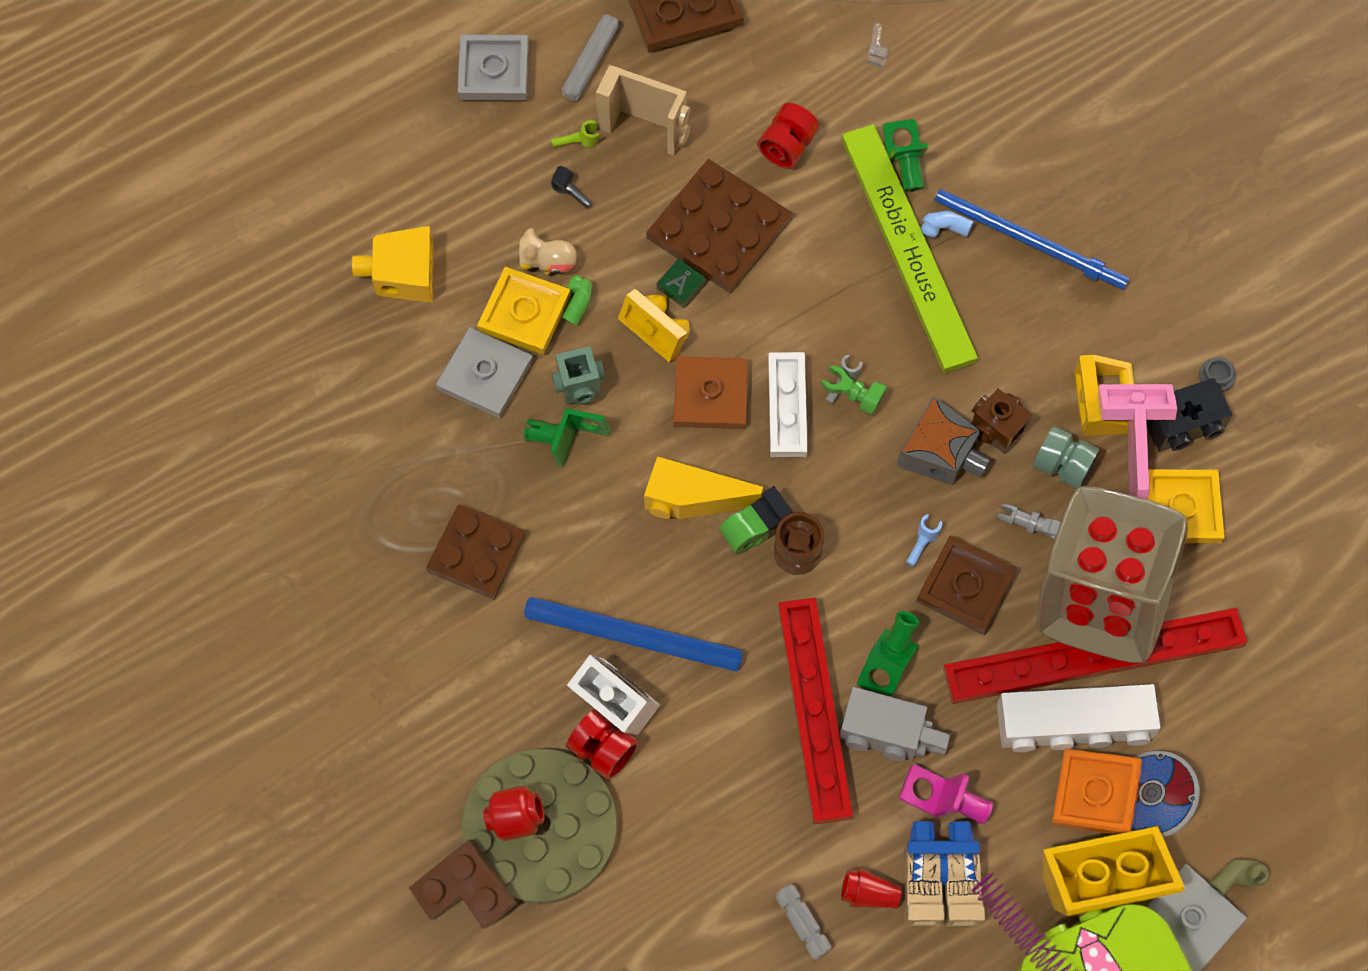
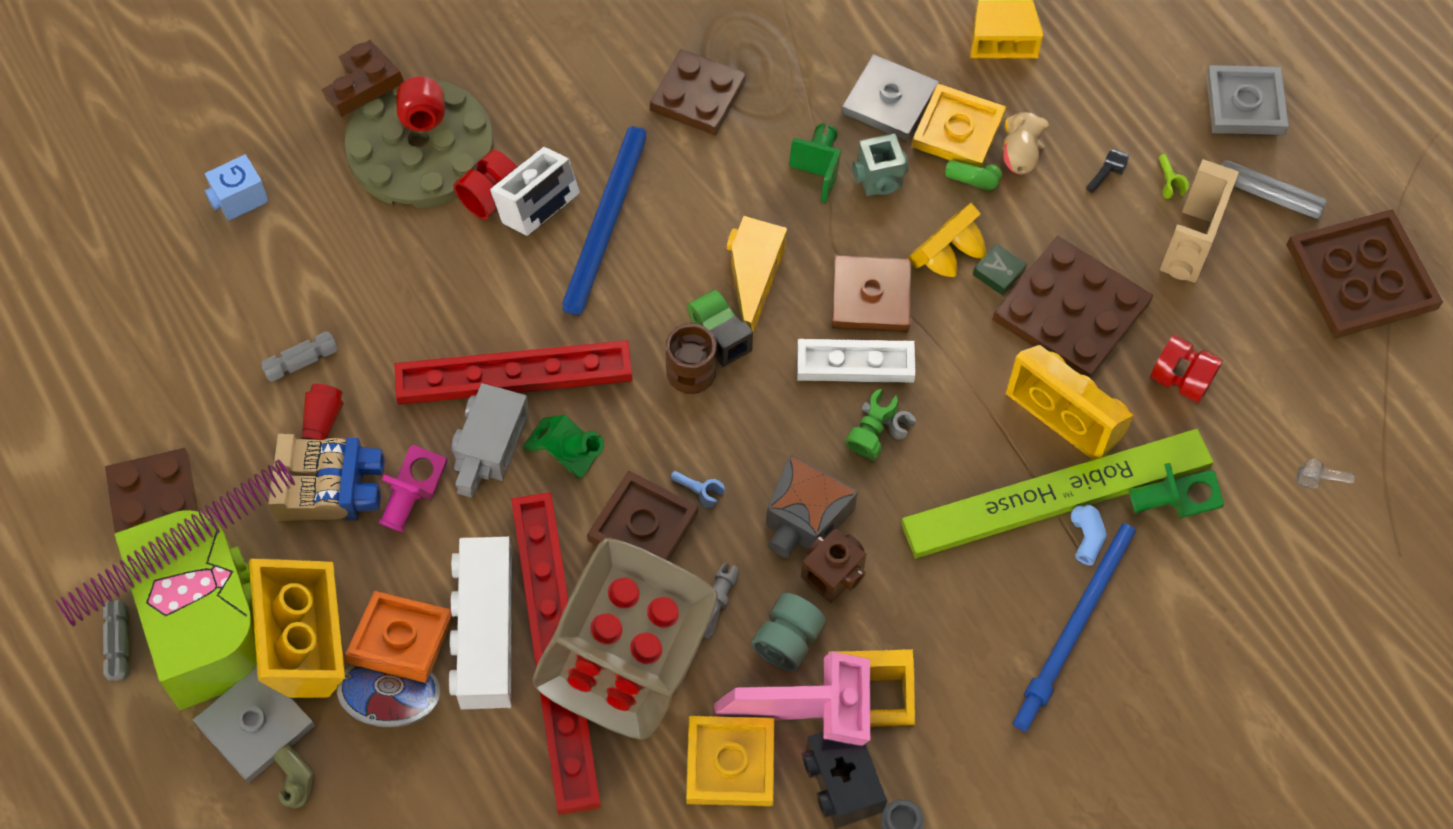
camera: 90 degrees right, 5 degrees down
(827, 227) = (1068, 402): none -> yellow slope

